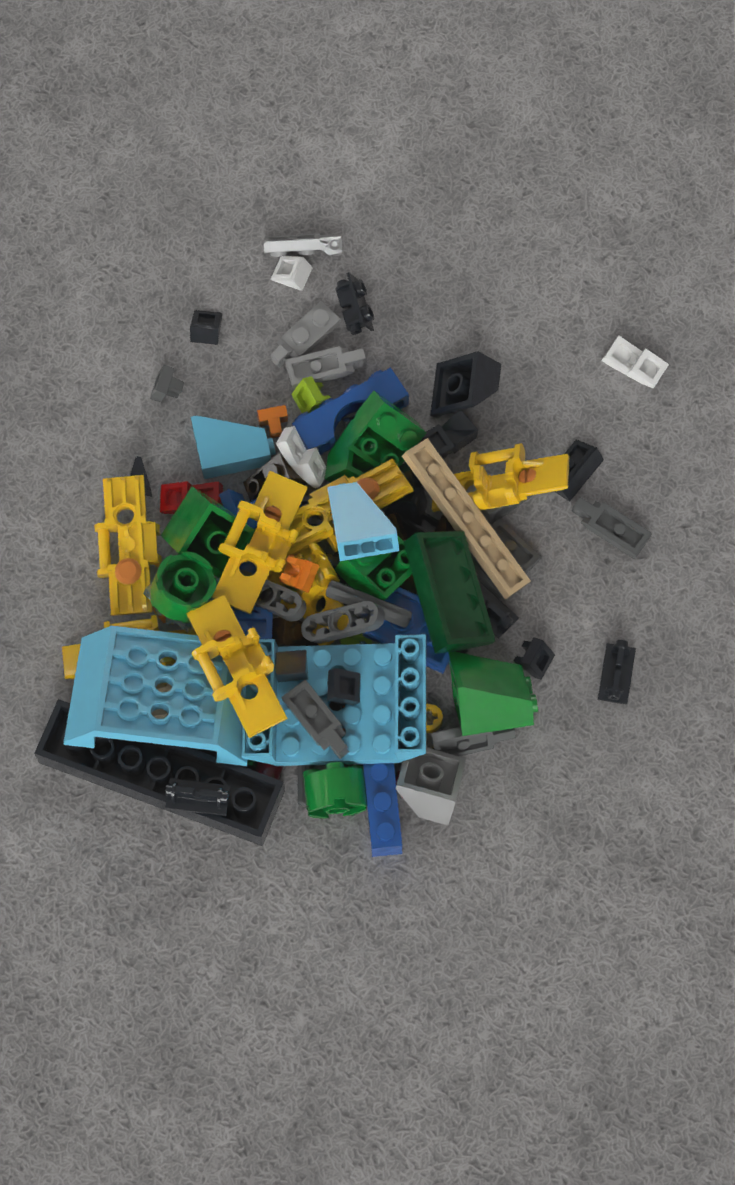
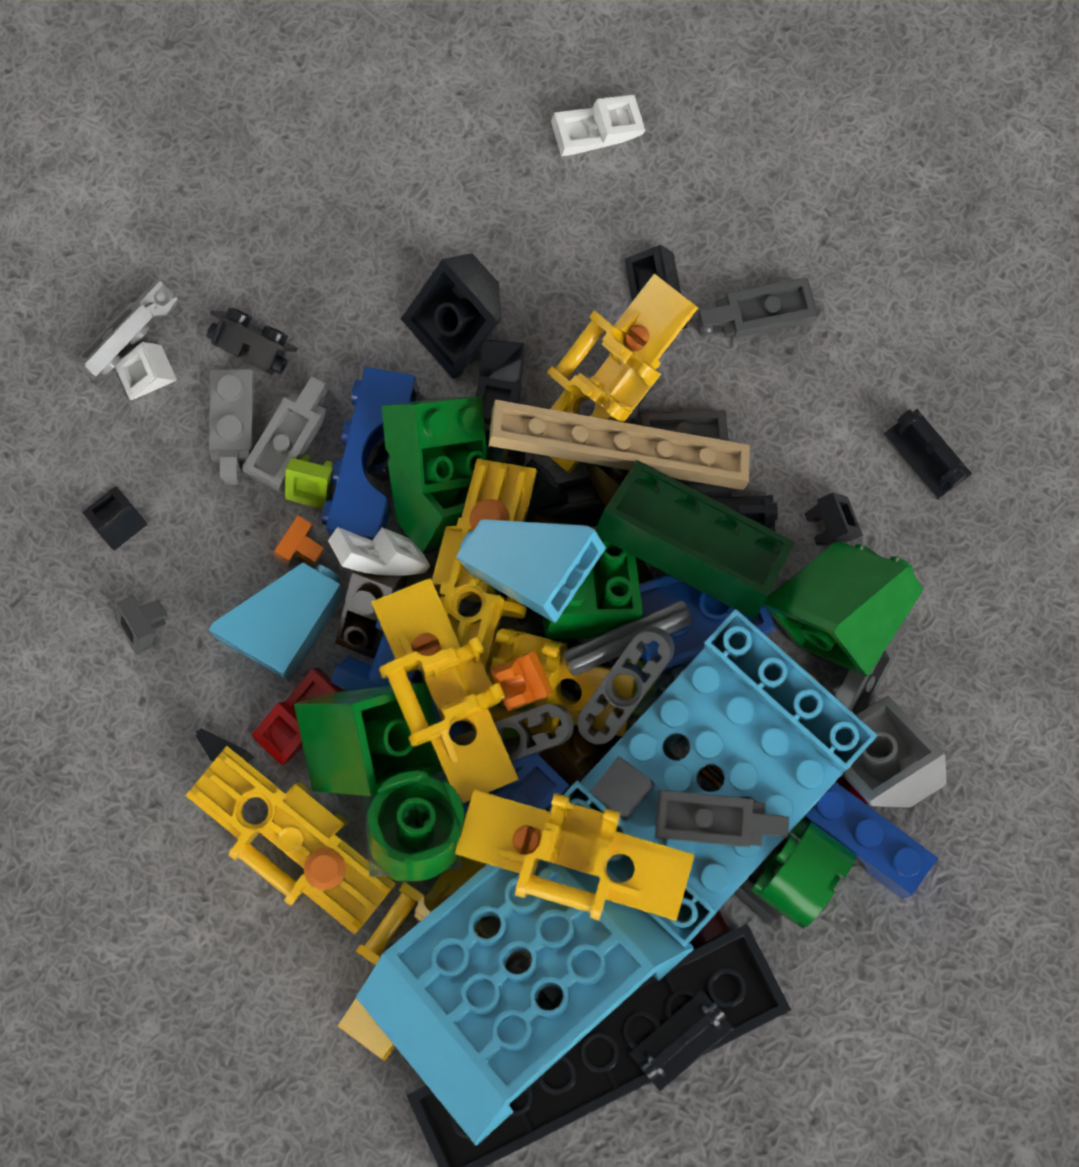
camera: 45 degrees left, 5 degrees up
(343, 686) = (708, 755): black tile -> none

